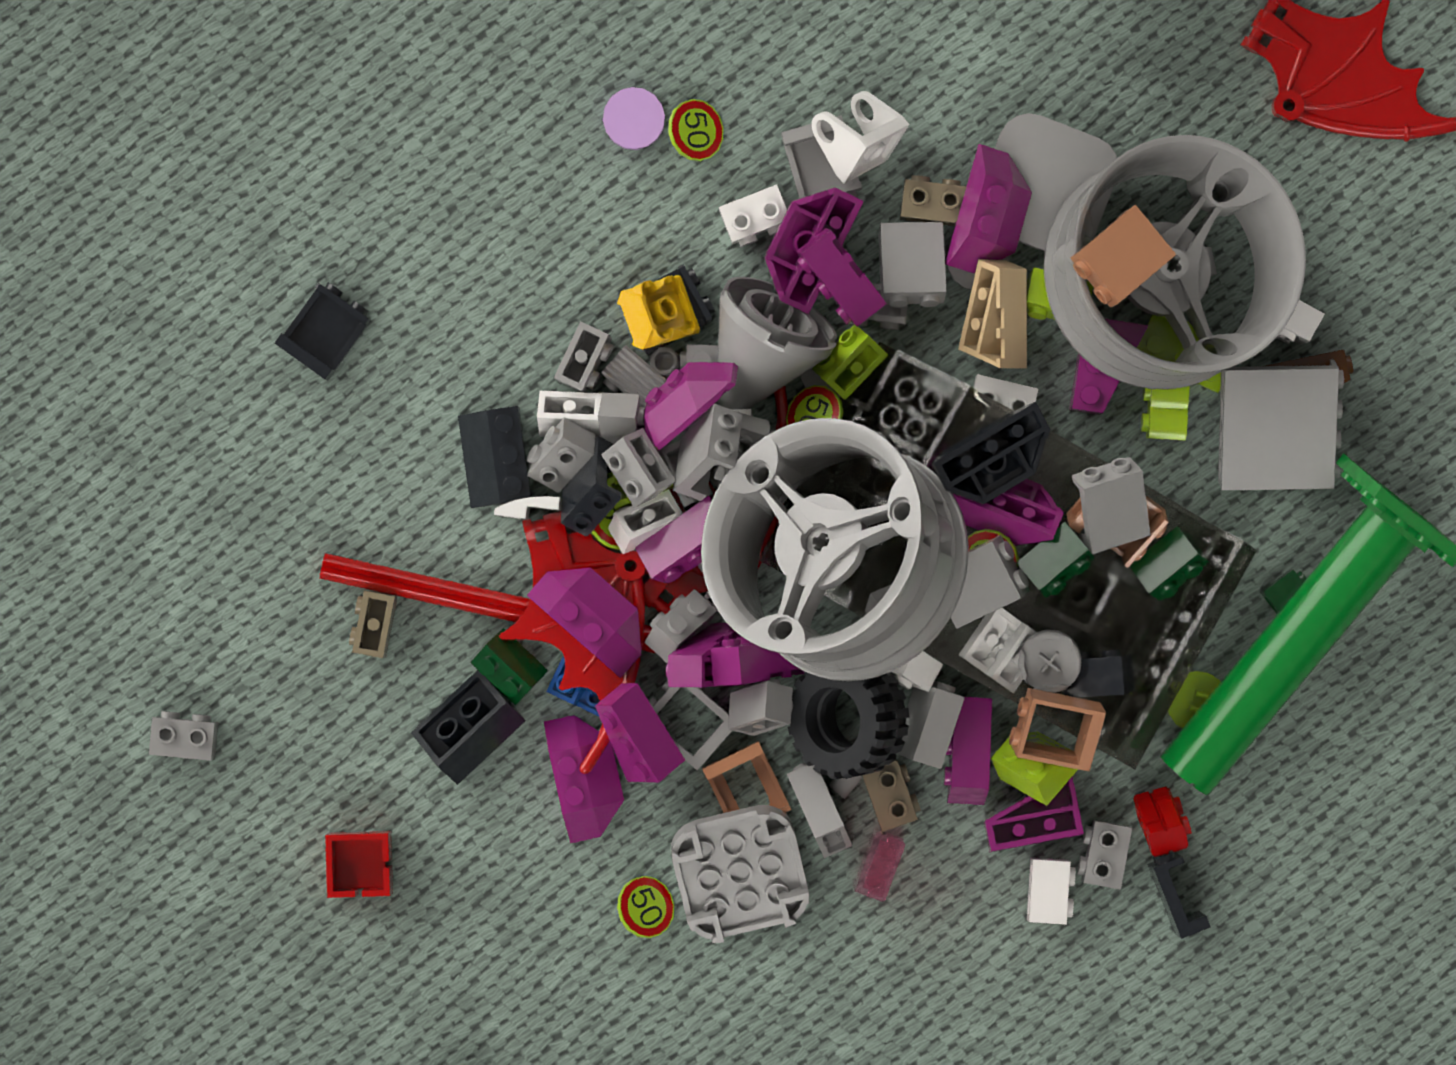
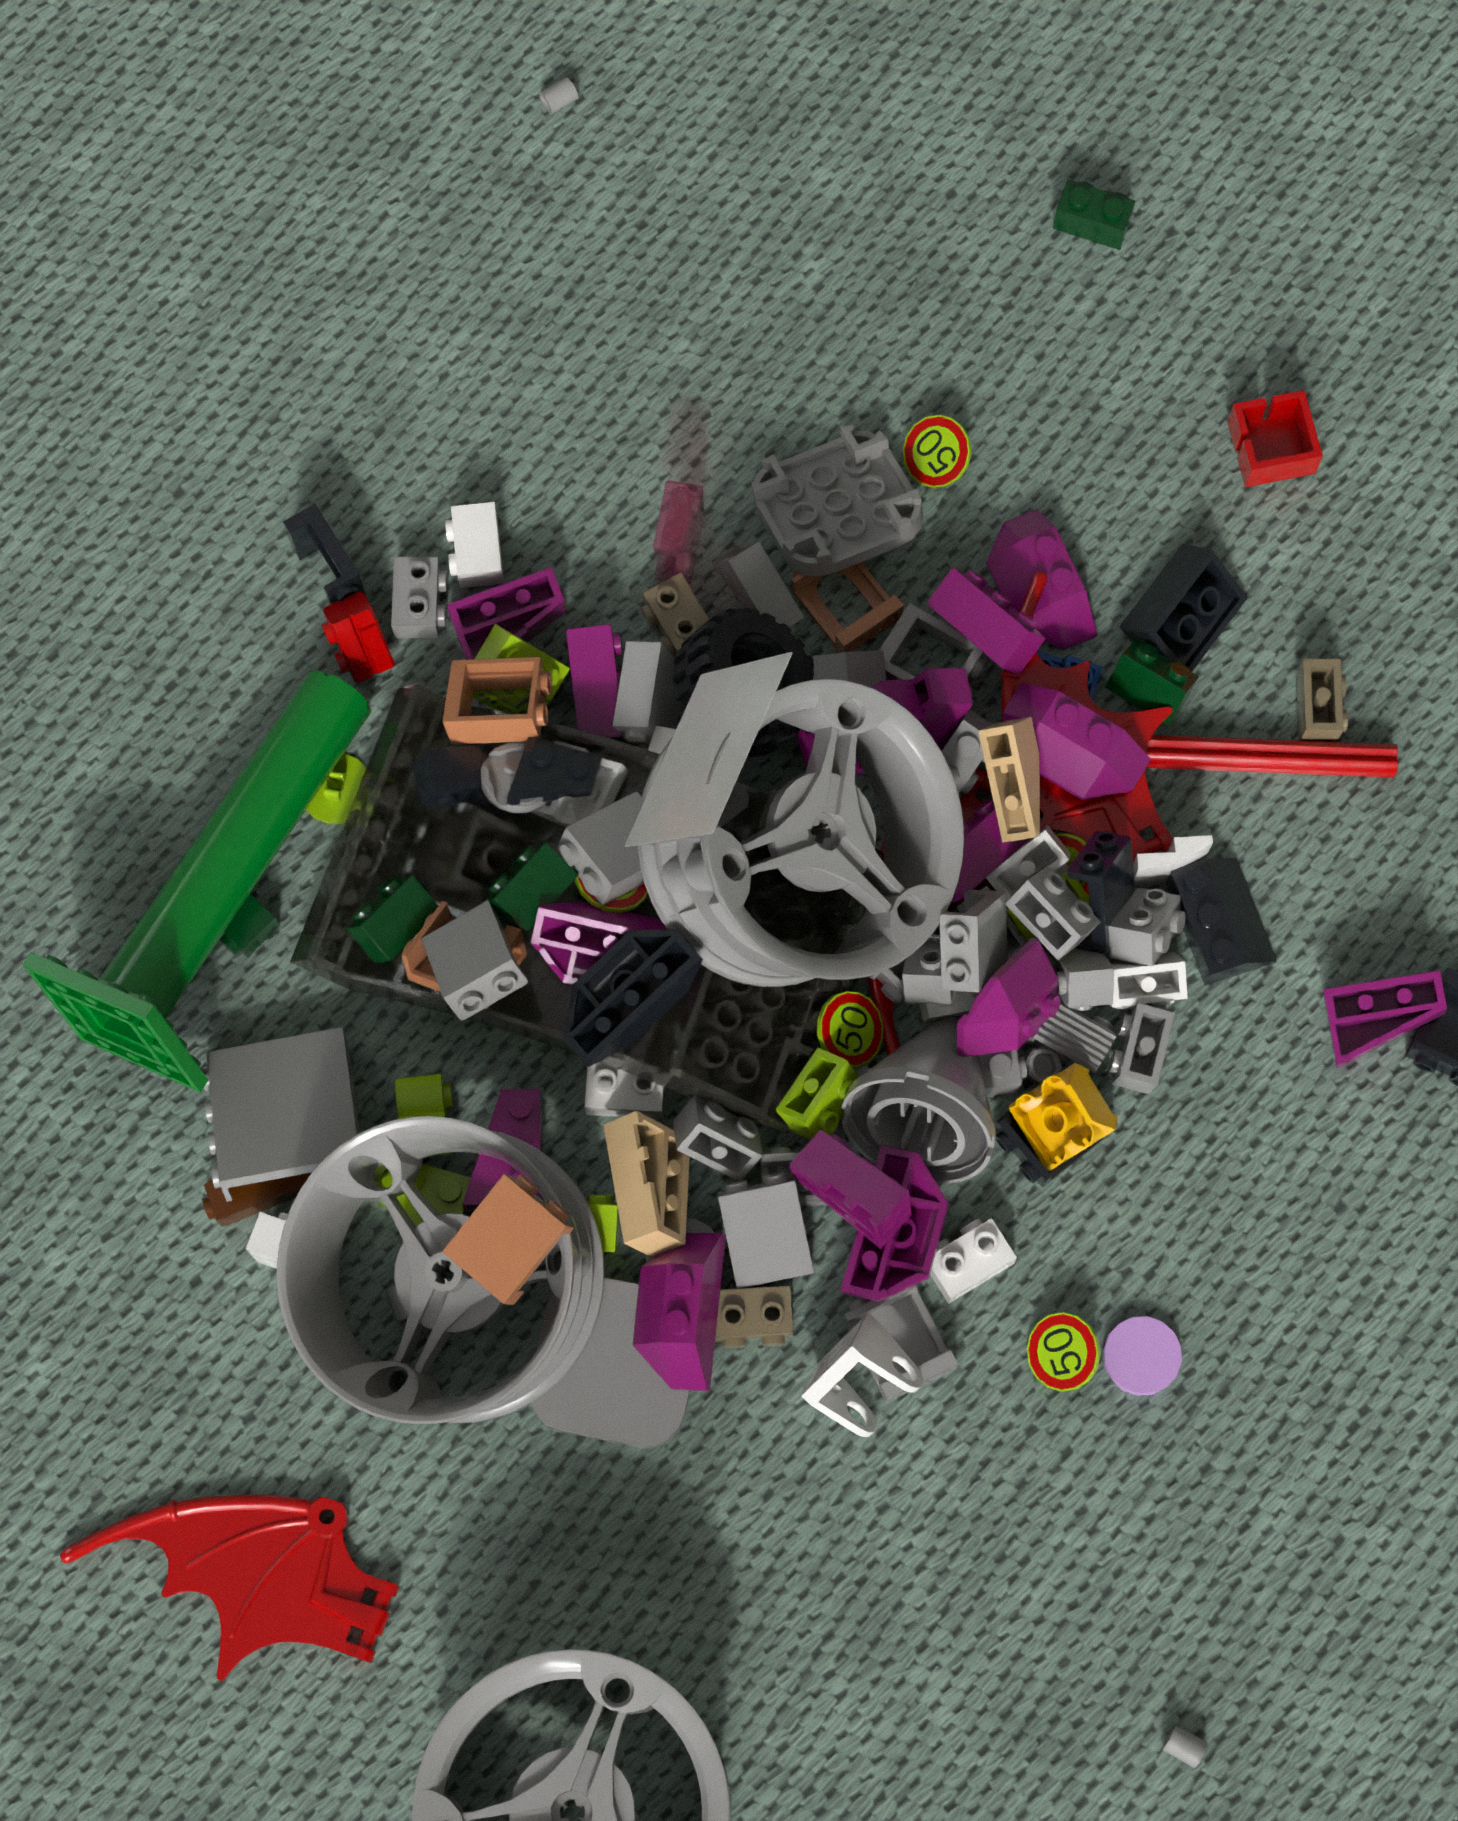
camera: 170 degrees right, 15 degrees down
(388, 352) = (1380, 1011): none -> magenta wedge
(646, 589) = (1013, 776): none -> tan slope
(887, 644) = (721, 703): none -> white sticker
(937, 342) = (717, 1138): none -> light grey brick
(1021, 656) = (553, 772): none -> black wing

